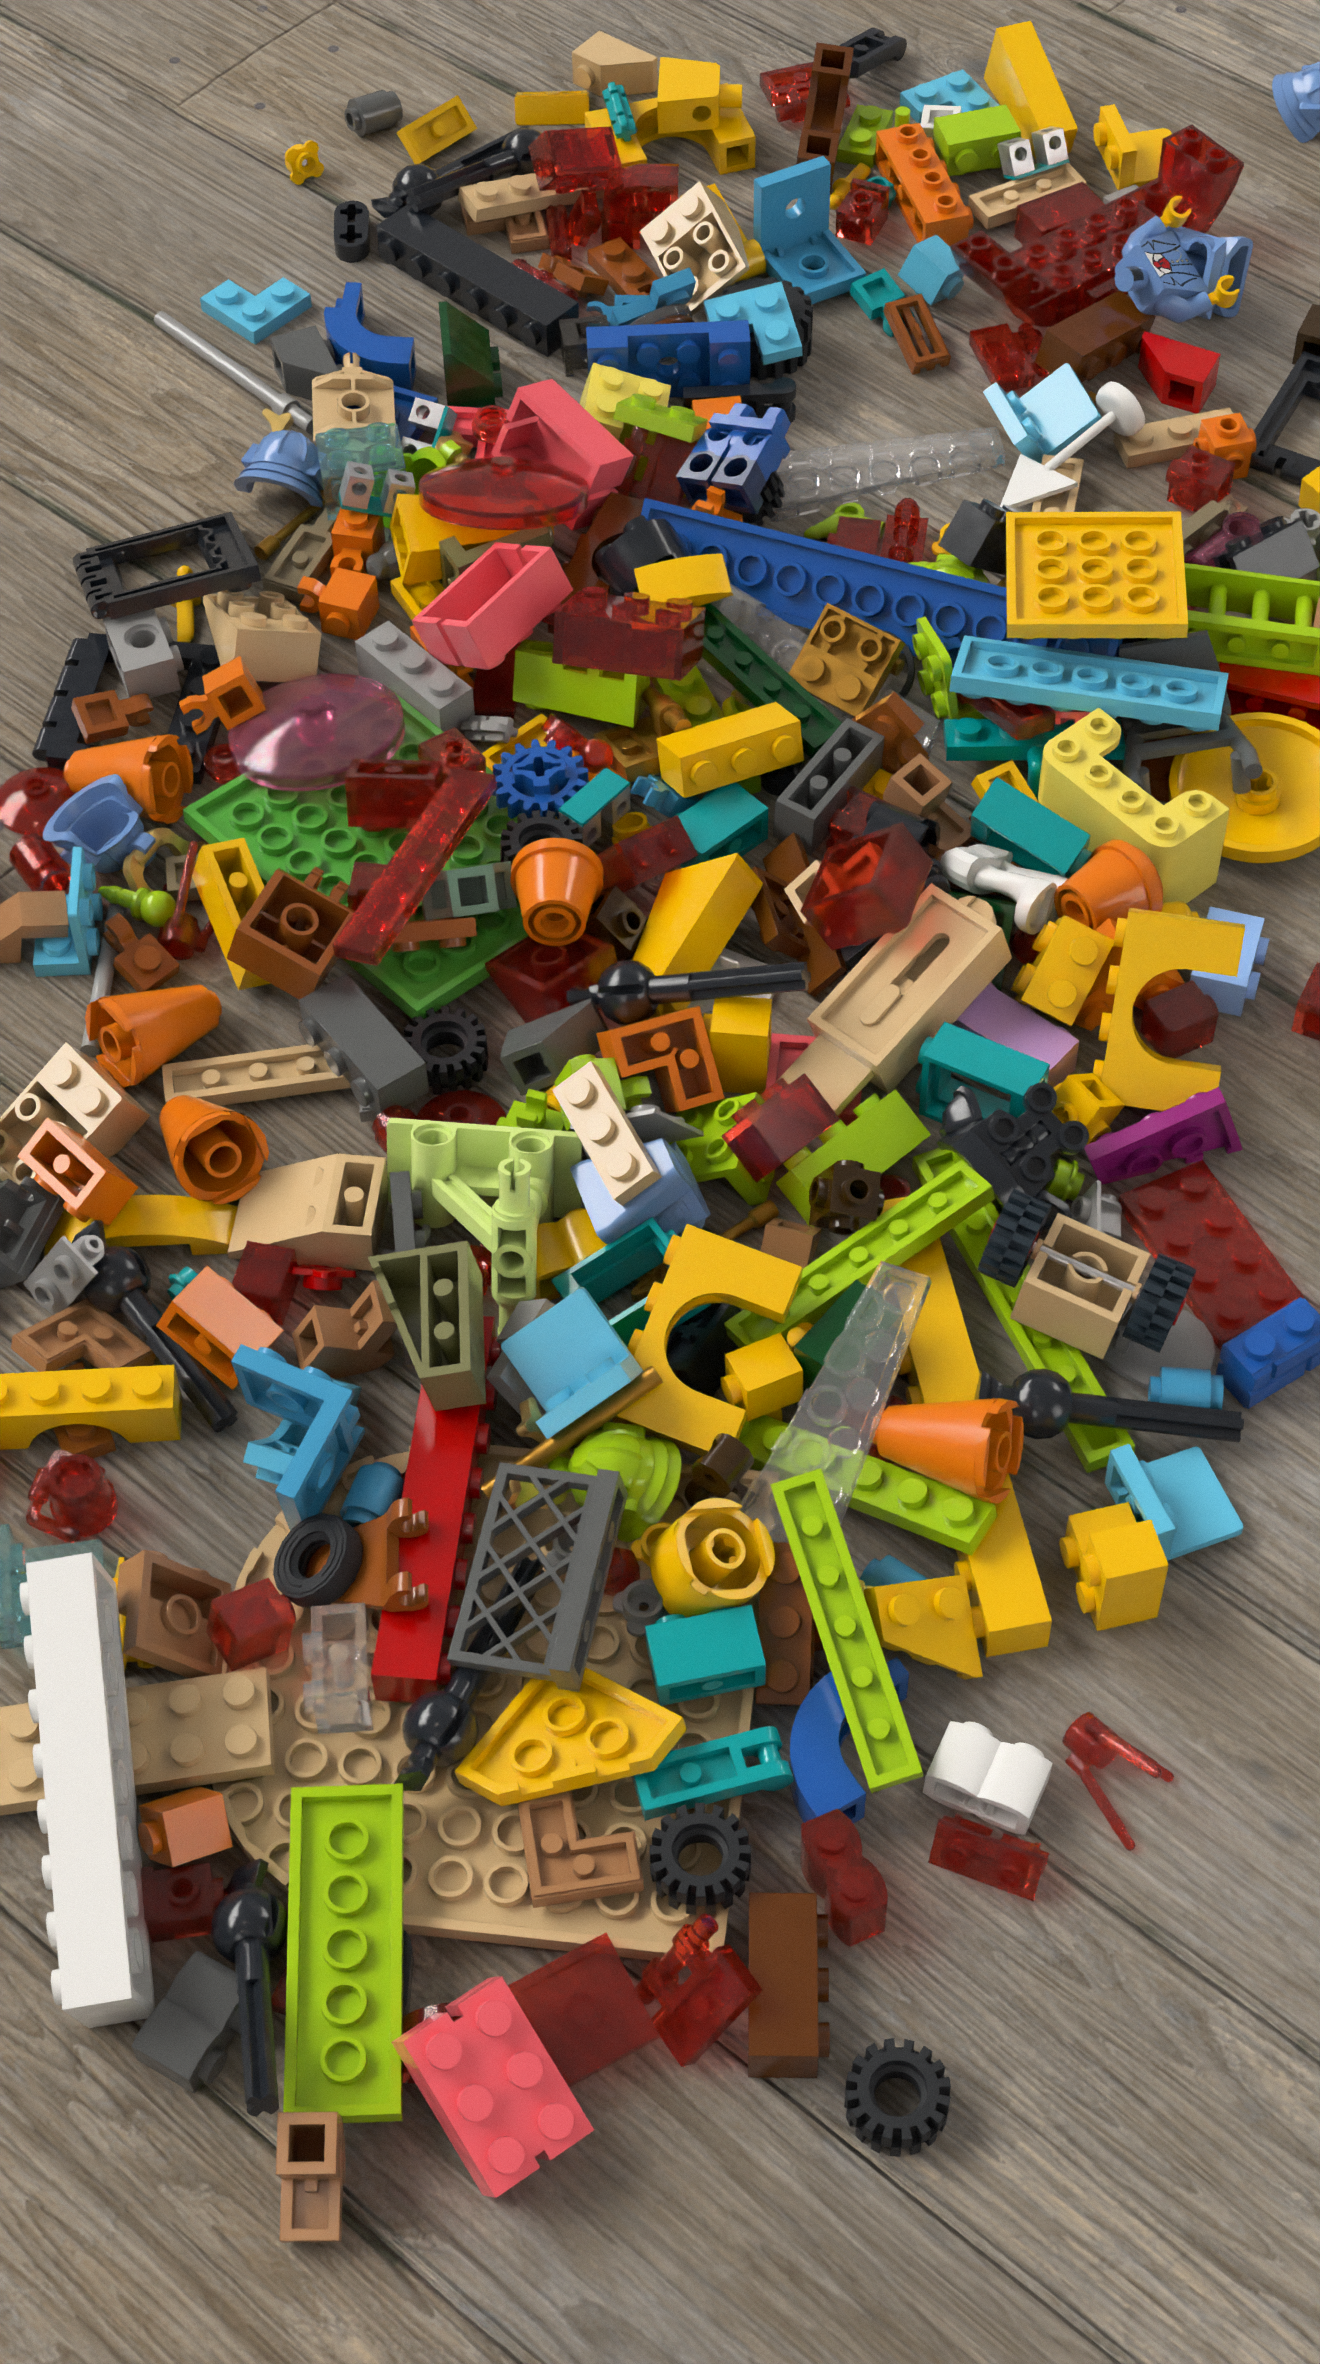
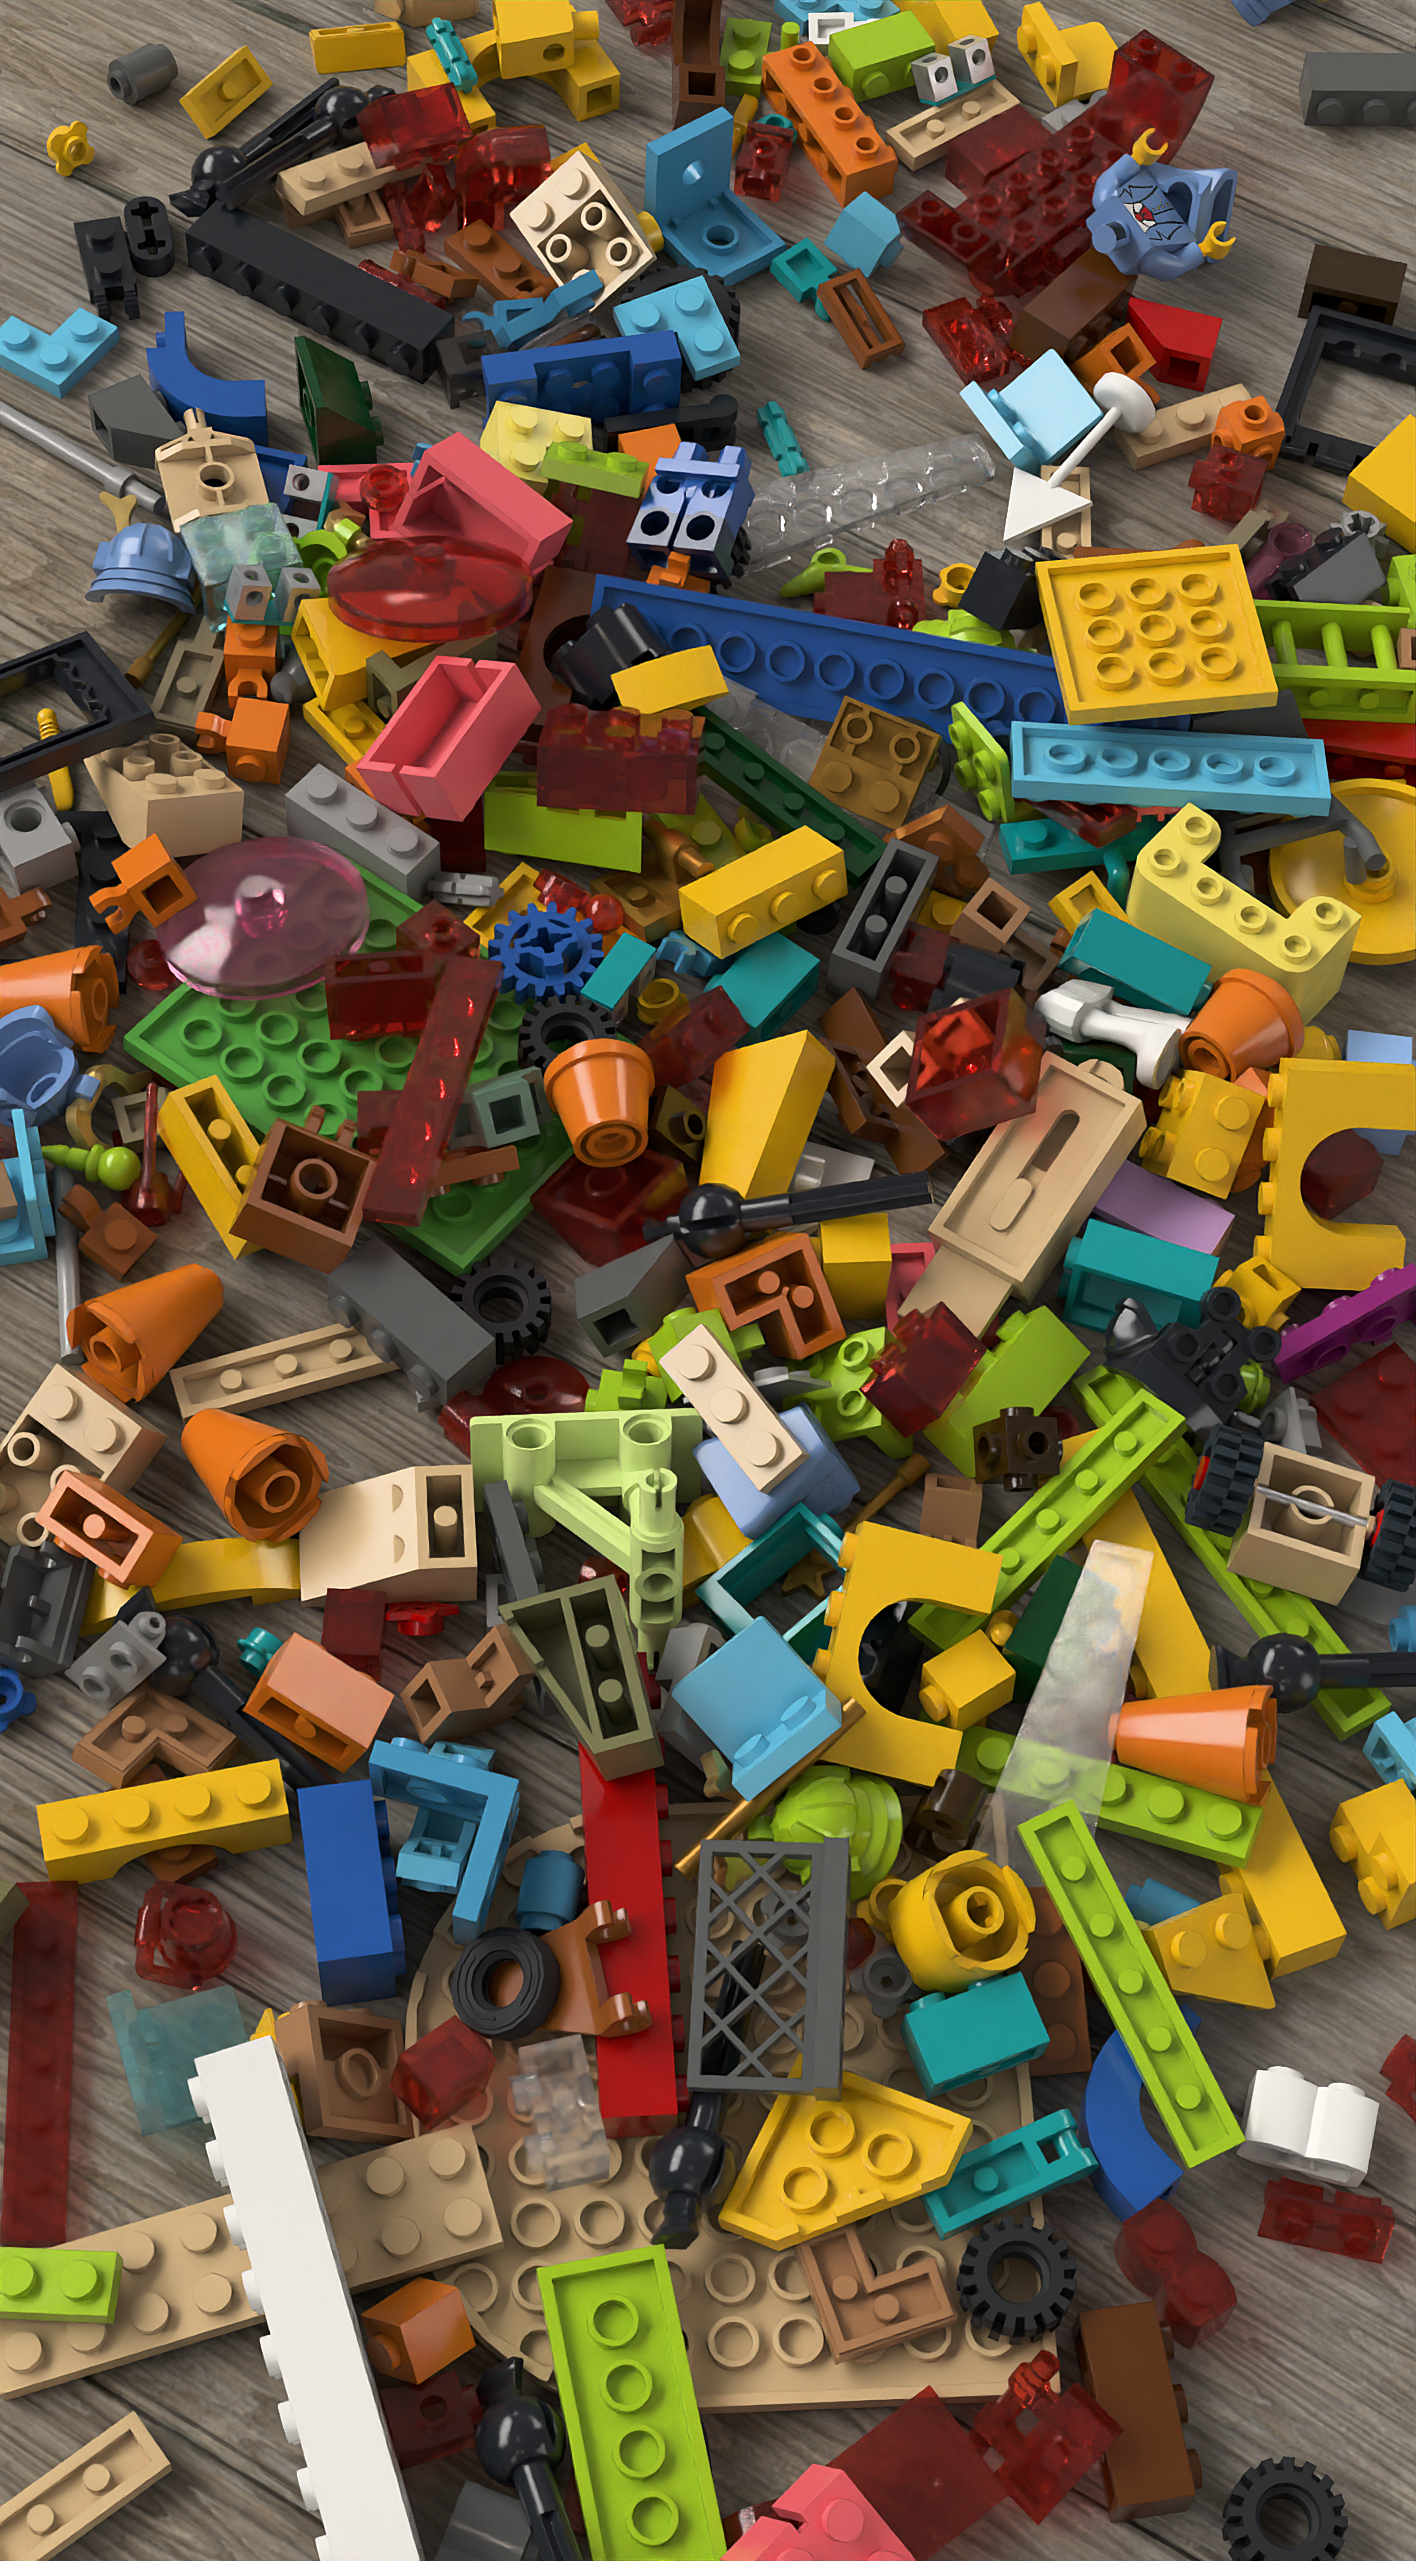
camera: 15 degrees left, 5 degrees up
(208, 1476) = (352, 1892): none -> blue brick
(313, 249) = (107, 265): none -> black hinge
(831, 418) = (781, 439): none -> teal axle
(1131, 373) = (1118, 353): none -> orange brick

